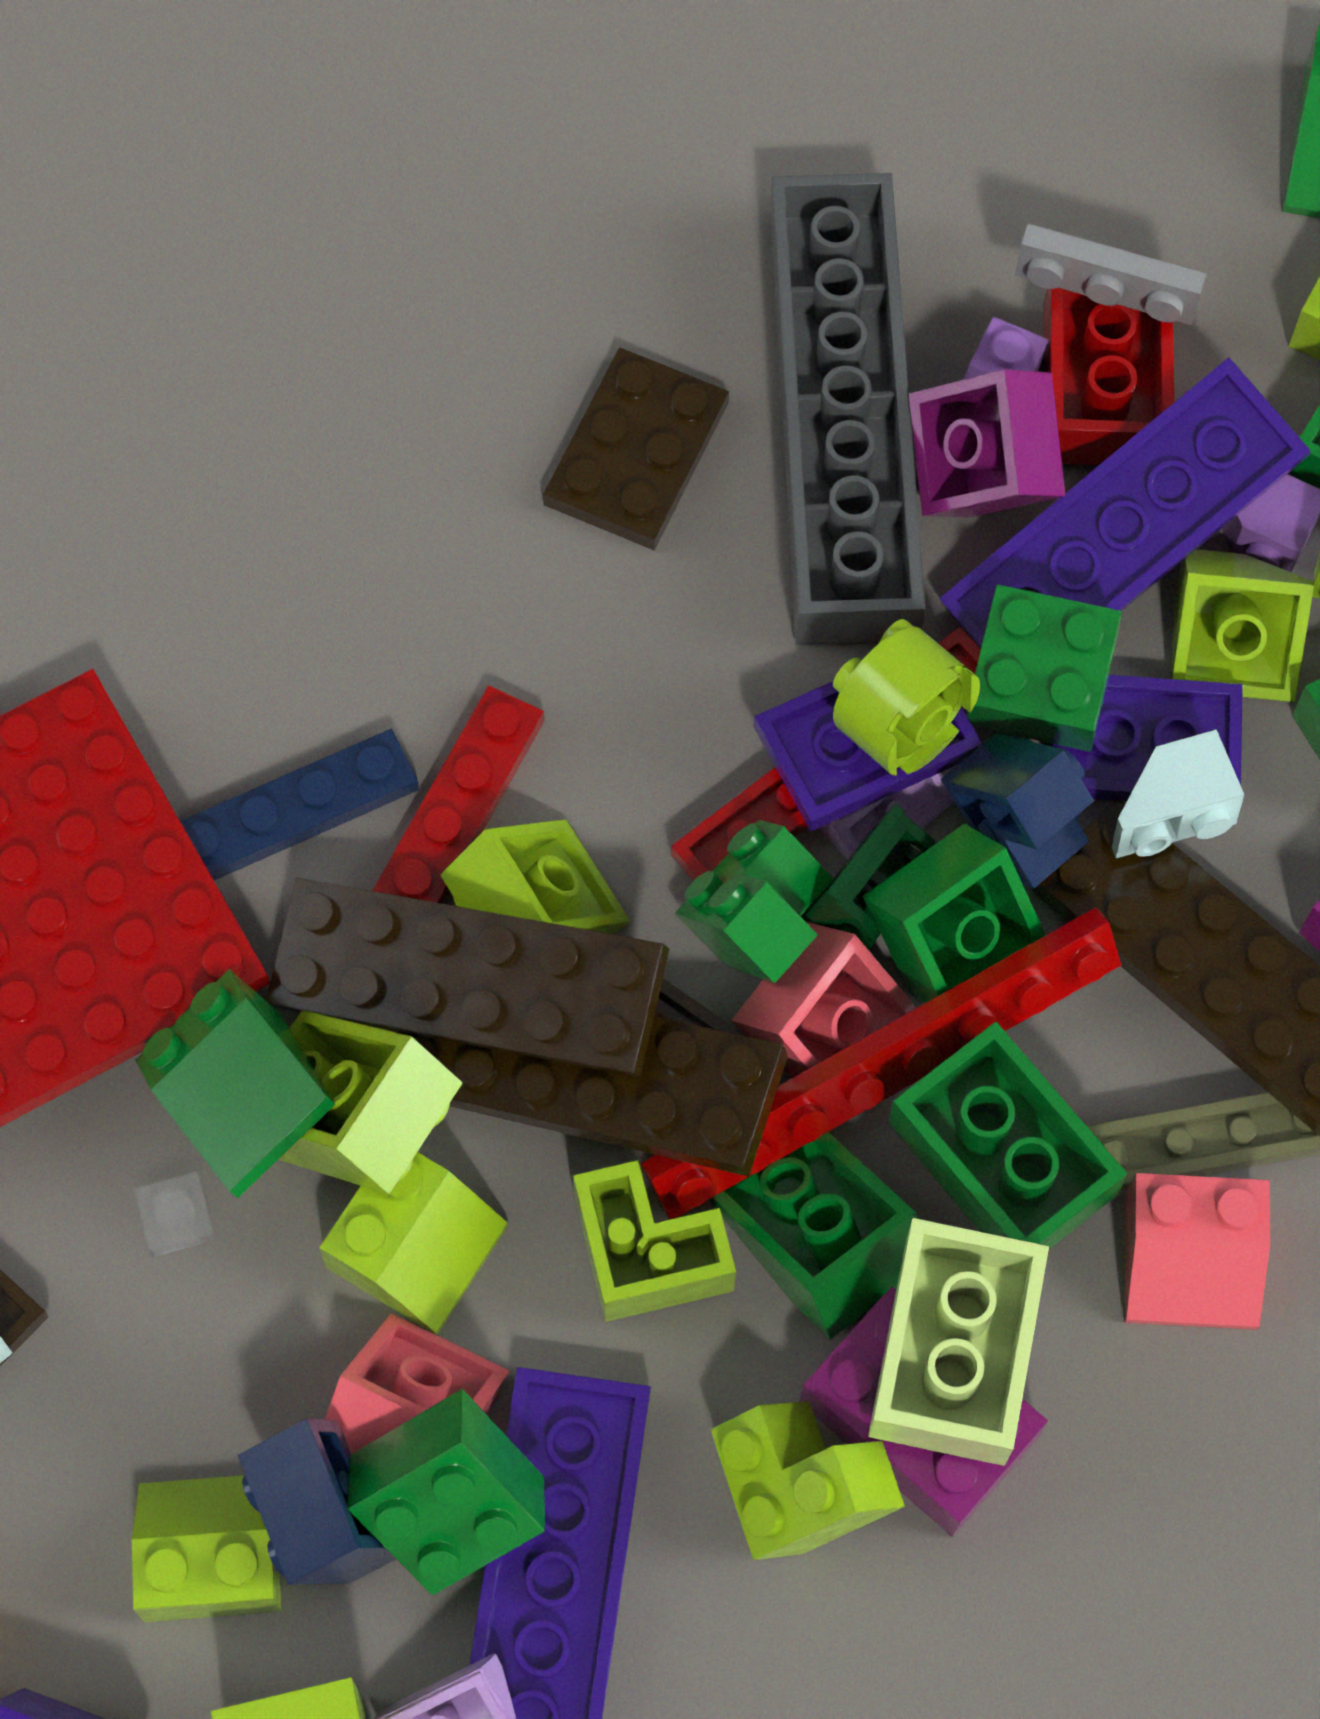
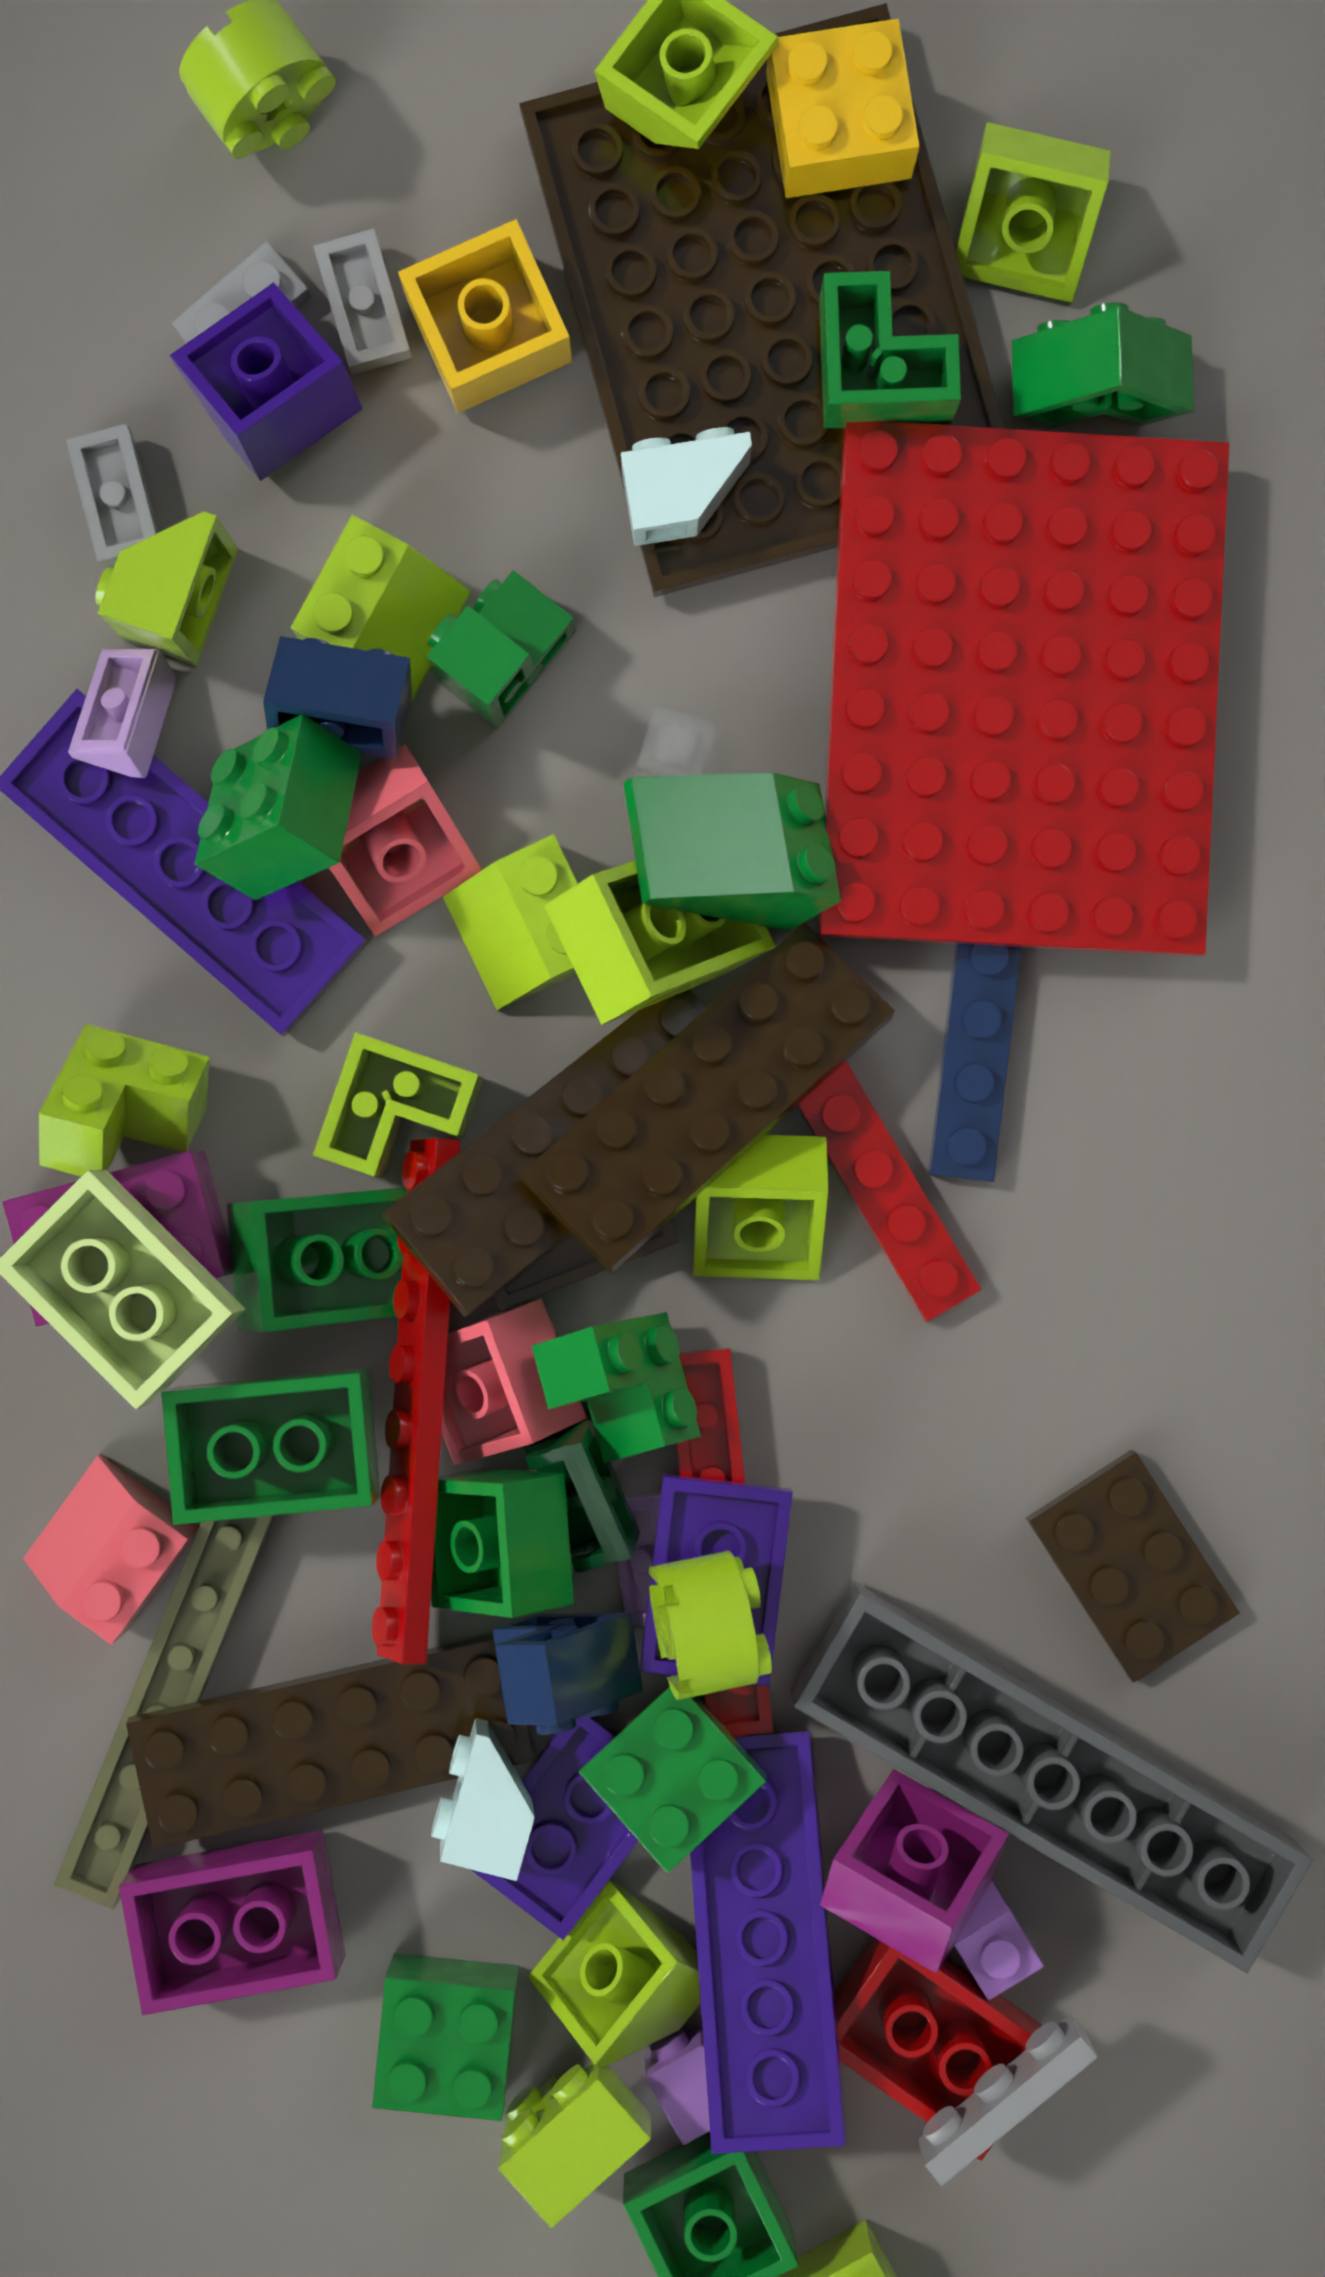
camera: 125 degrees right, 20 degrees up
(178, 1409) = (499, 646): none -> green brick

